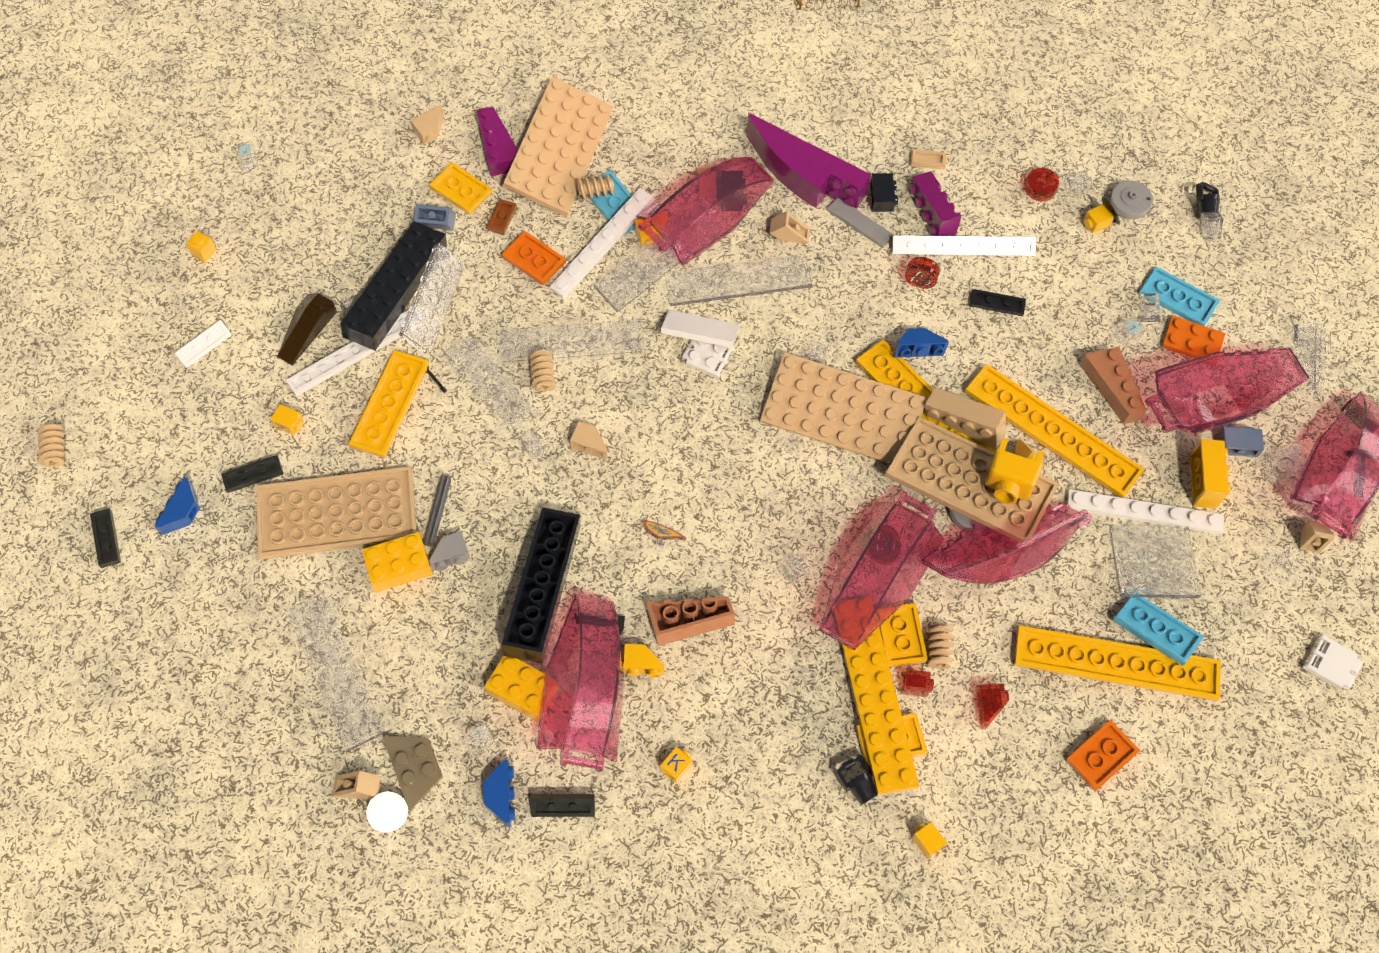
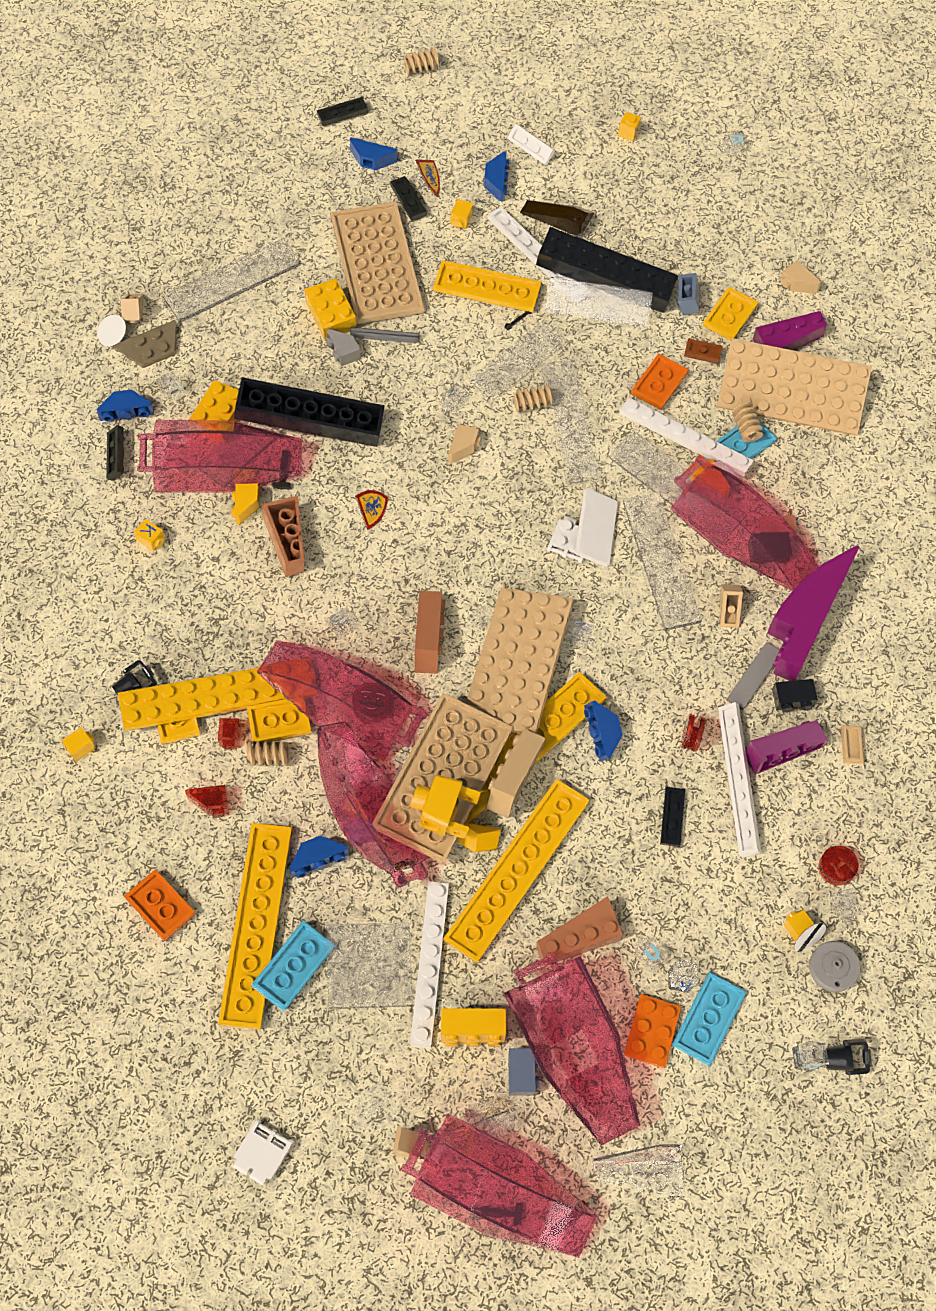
camera: 85 degrees right, 0 degrees up
(227, 450) = (429, 175): none -> shield
(242, 381) = (496, 176): none -> blue slope
(808, 485) = (429, 631): none -> nougat wedge
(1047, 604) = (316, 855): none -> blue slope

